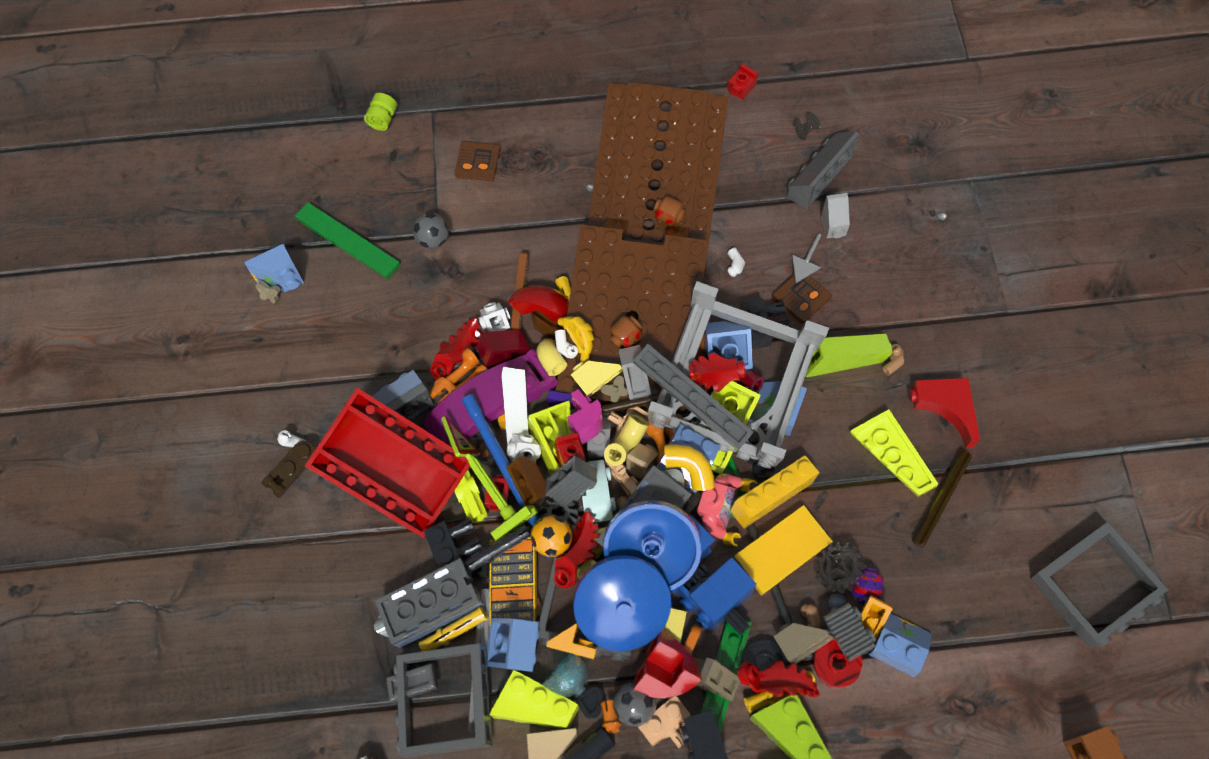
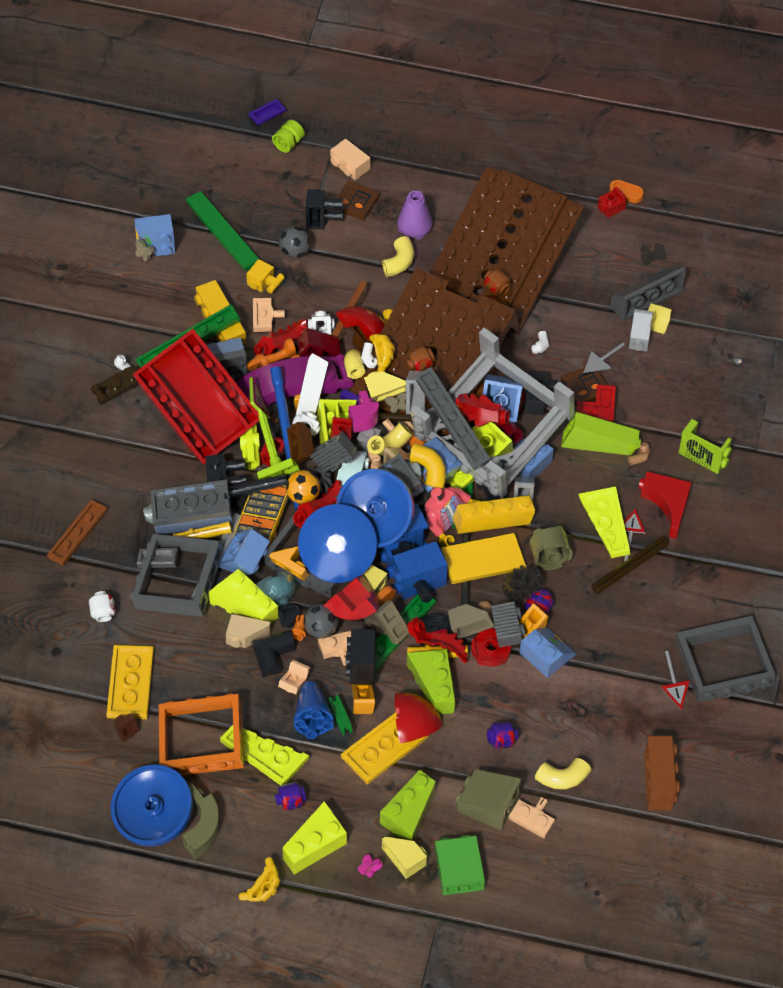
camera: 15 degrees right, 10 degrees down
(305, 678) = (77, 532): none -> dark orange tile
(348, 91) = (267, 112): none -> dark purple tile
(360, 377) = (205, 329): none -> green tile
(378, 342) = (212, 300): none -> yellow brick
(409, 280) = (261, 276): none -> yellow brick
(427, 326) = (264, 314): none -> light nougat plate
(446, 183) = (317, 209): none -> black brick
(455, 117) = (350, 159): none -> light nougat brick
(548, 161) = (415, 216): none -> medium lavender cone
(552, 214) = (402, 260): none -> light yellow cylinder
(756, 63) = (632, 192): none -> orange tile
(796, 447) = (524, 486): none -> light grey slope
(833, 313) = (604, 404): none -> red plate
(846, 187) = (660, 318): none -> light yellow panel
(853, 512) = (550, 547): none -> olive brick
(924, 448) = (633, 525): none -> piece
(962, 336) = (702, 451): none -> lime panel
(1062, 641) = (675, 691): none -> piece

